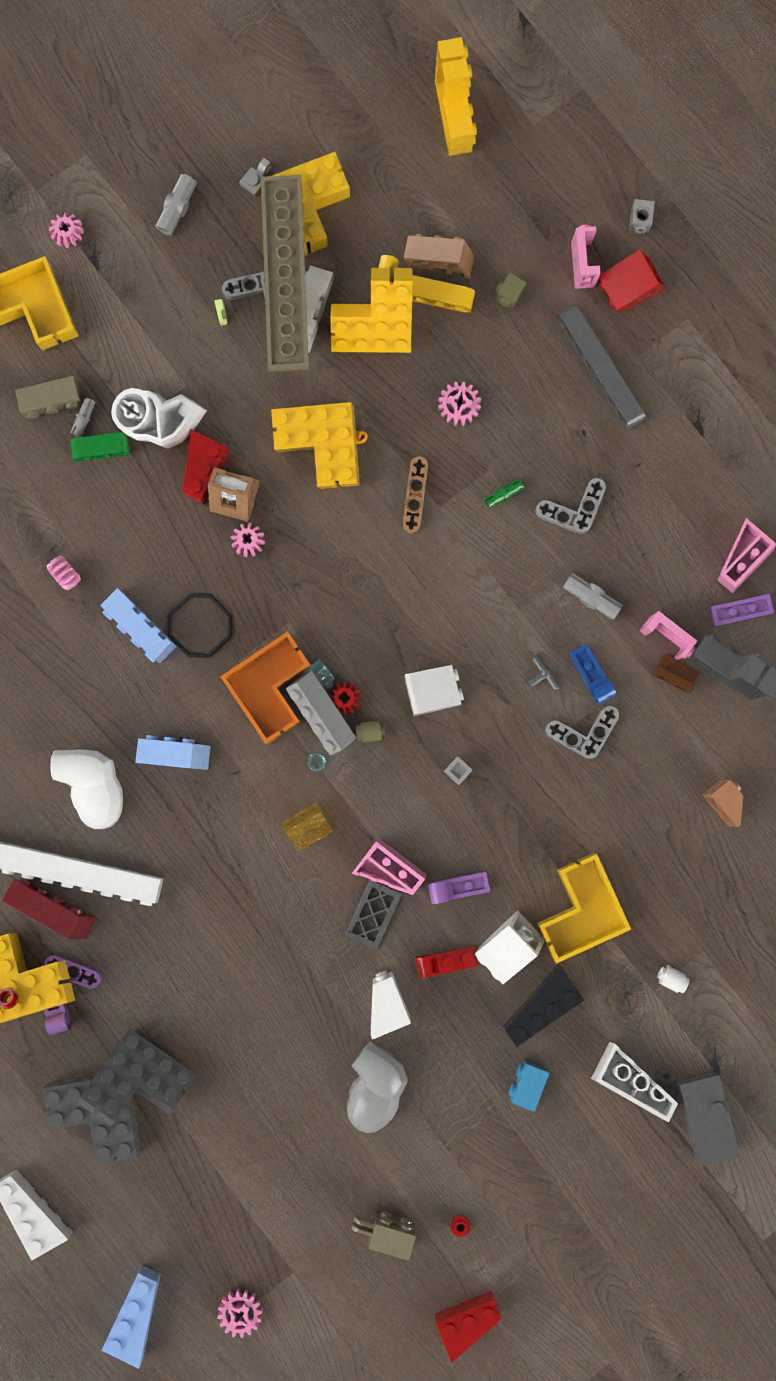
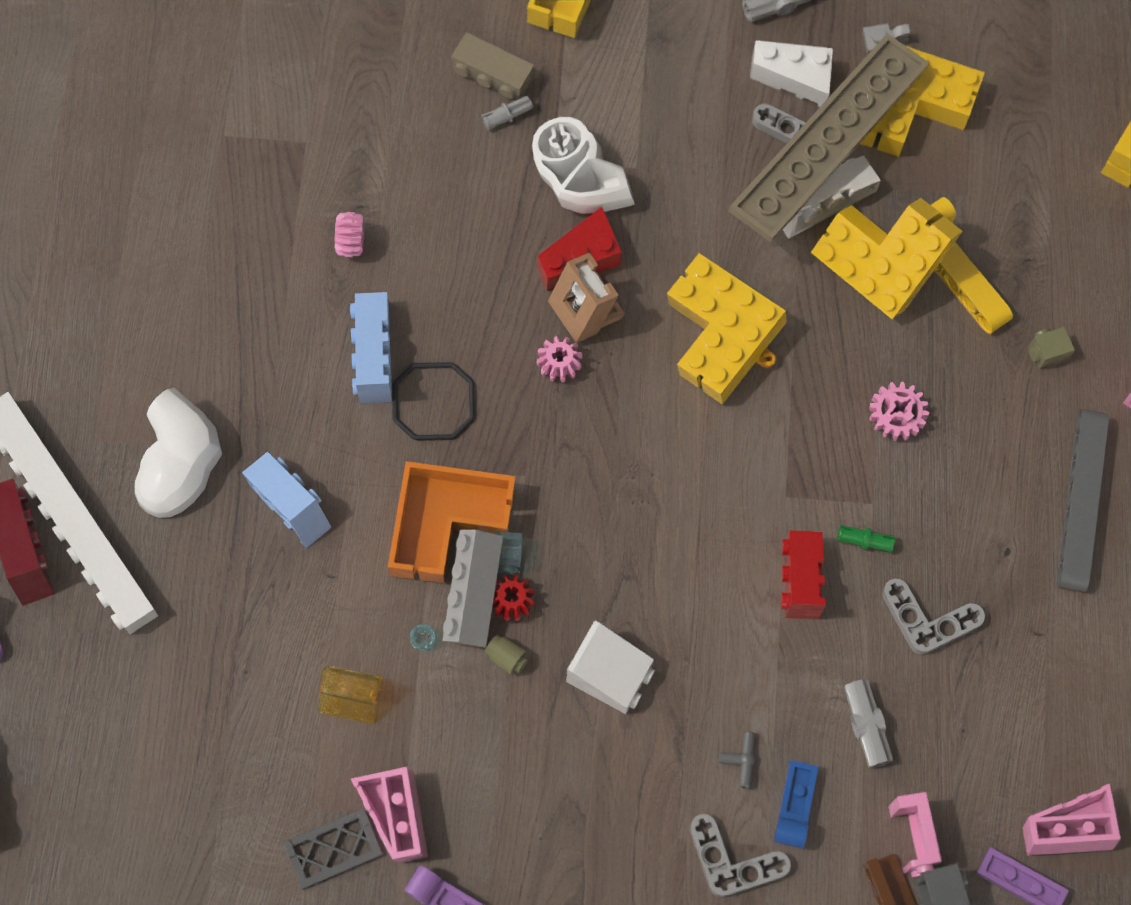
camera: 40 degrees right, 15 degrees down
(100, 447) = (497, 152): green beam -> none
(221, 312) = (734, 128): yellowish green tile -> none
(223, 244) = (794, 69): none -> white wedge
(415, 495) = (771, 462): medium nougat beam -> none
(439, 253) = (1008, 252): medium nougat wedge -> none
(457, 770) = (560, 774): light grey brick -> none
(488, 544) = (803, 575): none -> red wedge

